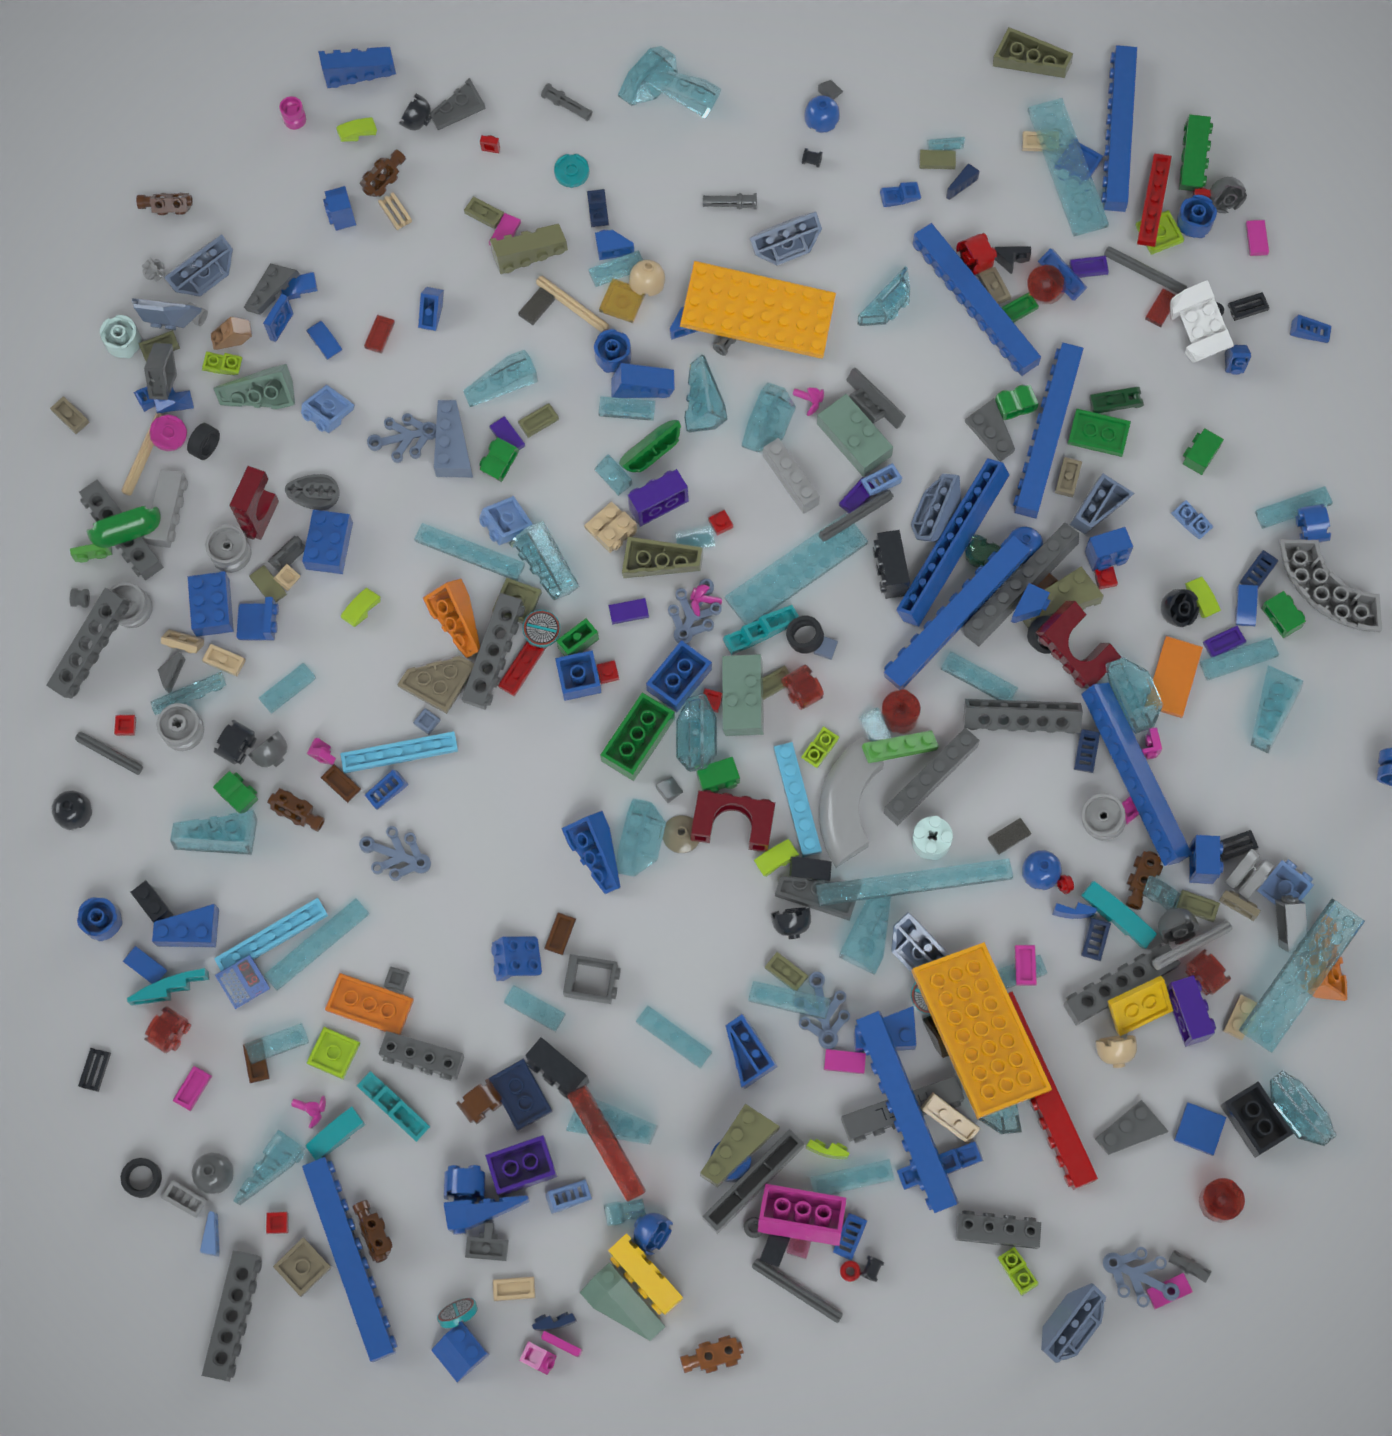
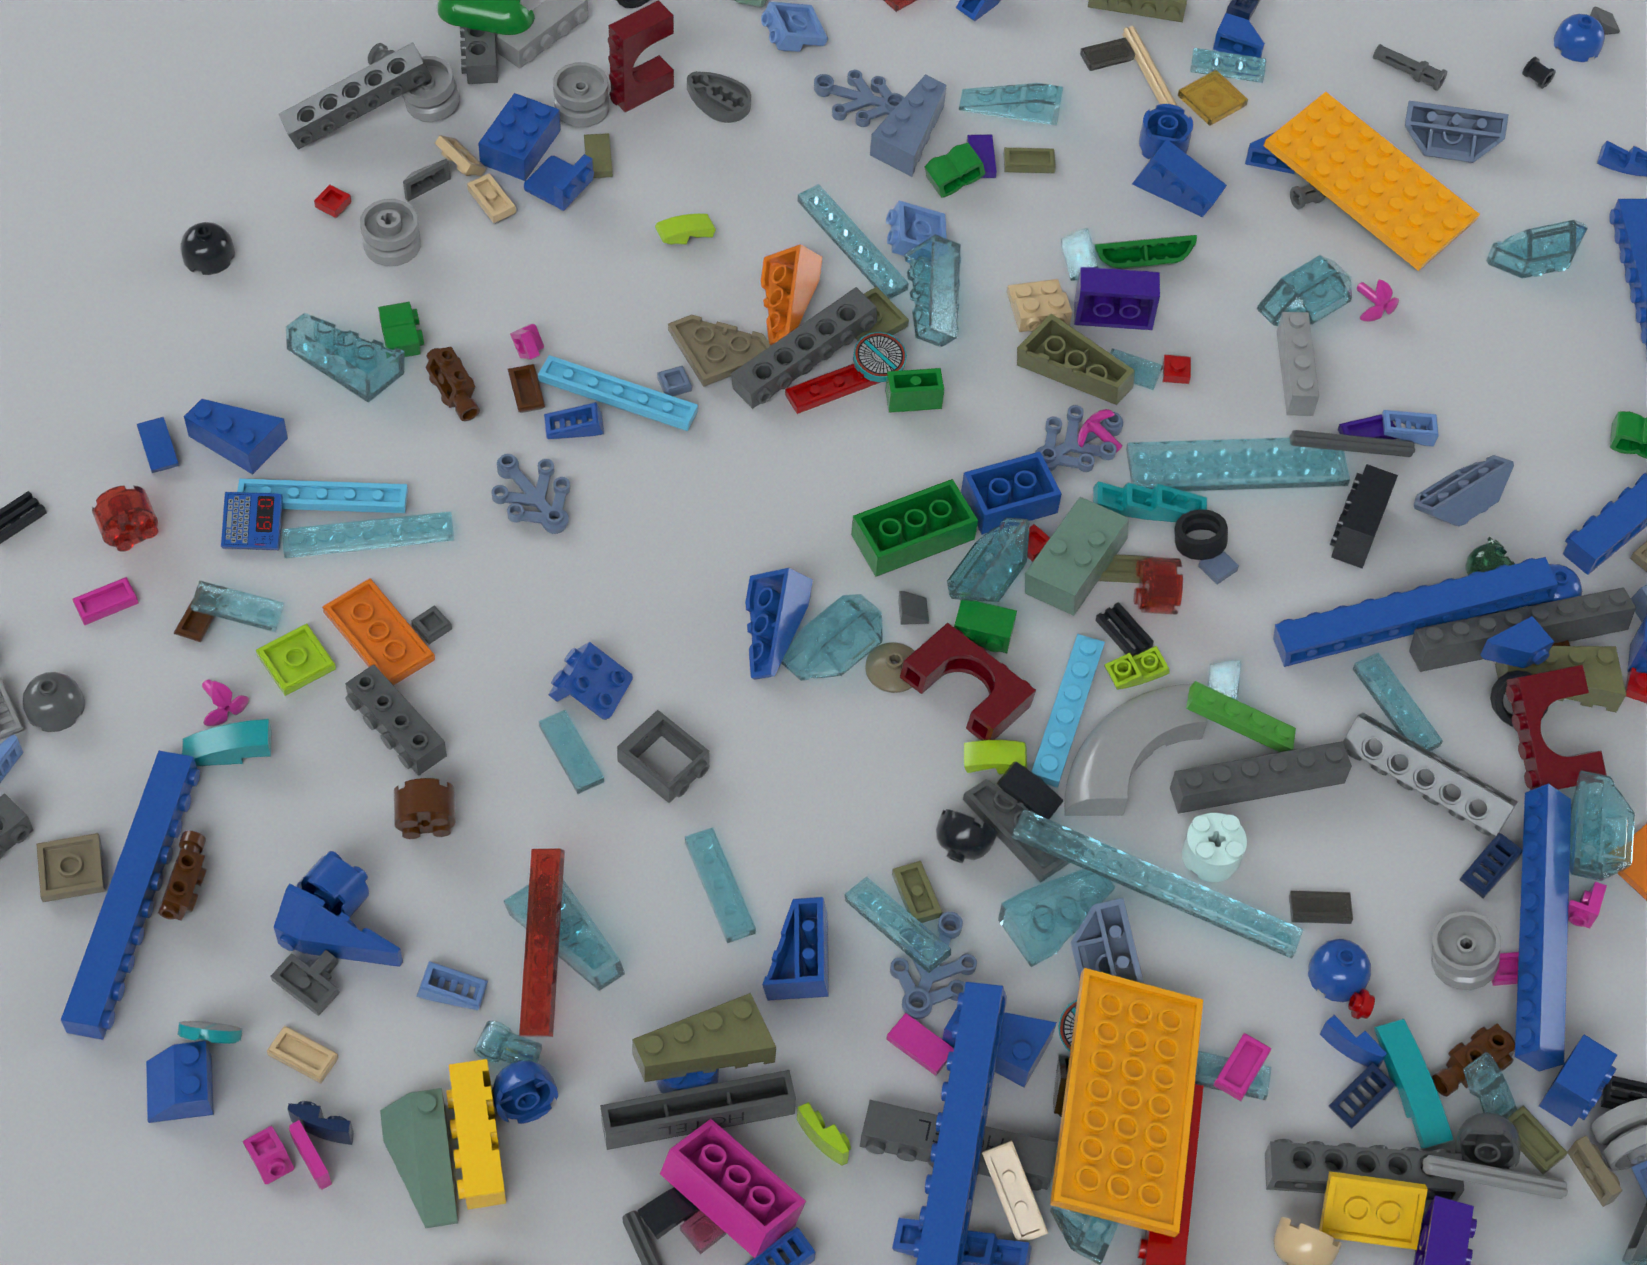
camera: 25 degrees right, 15 degrees down
(84, 553) = (429, 23): bright green plate -> none
(109, 753) = (293, 219): dark grey axle -> none
(110, 918) = (146, 366): blue brick -> none
(151, 902) = (216, 378): black brick -> none
(161, 990) = (161, 477): teal slope -> none
(194, 691) = (439, 211): clear light blue plate -> none
(235, 742) = (438, 277): black brick -> none
(270, 751) = (470, 307): dark grey cylinder -> none
(277, 1223) = (81, 800): red plate -> none
(279, 1156) = (135, 728): clear light blue wedge -> none
(287, 553) = (635, 138): dark grey hinge -> none
(287, 577) = (625, 157): tan plate -> none
(287, 688) = (540, 263): clear light blue plate -> none
(327, 541) = (697, 147): blue brick -> none
(393, 1106) = (318, 756): teal slope -> none
(520, 1095) = (481, 837): dark blue tile -> none
(521, 1166) = (419, 911): dark purple brick -> none
(555, 1068) = (543, 817): black brick -> none
(560, 933) = (663, 687): reddish brown tile -> none
(578, 675) = (888, 426): blue brick -> none
(607, 672) = (927, 447): red plate -> none
(627, 408) = (1143, 199): clear light blue plate -> none
(628, 611) = (998, 399): dark purple tile -> none
(647, 278) = (1258, 85): tan cylinder -> none
(706, 404) = (1244, 238): clear light blue wedge -> none
(753, 1234) = (651, 1165): dark grey plate -> none
(815, 725) = (1128, 628): none -> black tile
(853, 1178) = (836, 1190): clear light blue plate -> none
(854, 435) = (1407, 362): sand green brick -> none
(873, 401) = (1453, 341): dark grey bracket -> none
(902, 701) = (1268, 681): clear red brick -> none
(952, 542) = (1458, 535): blue brick -> none
(991, 430) = (1588, 450): dark grey wing -> none
(1208, 972) = (1498, 1225): clear red brick -> none

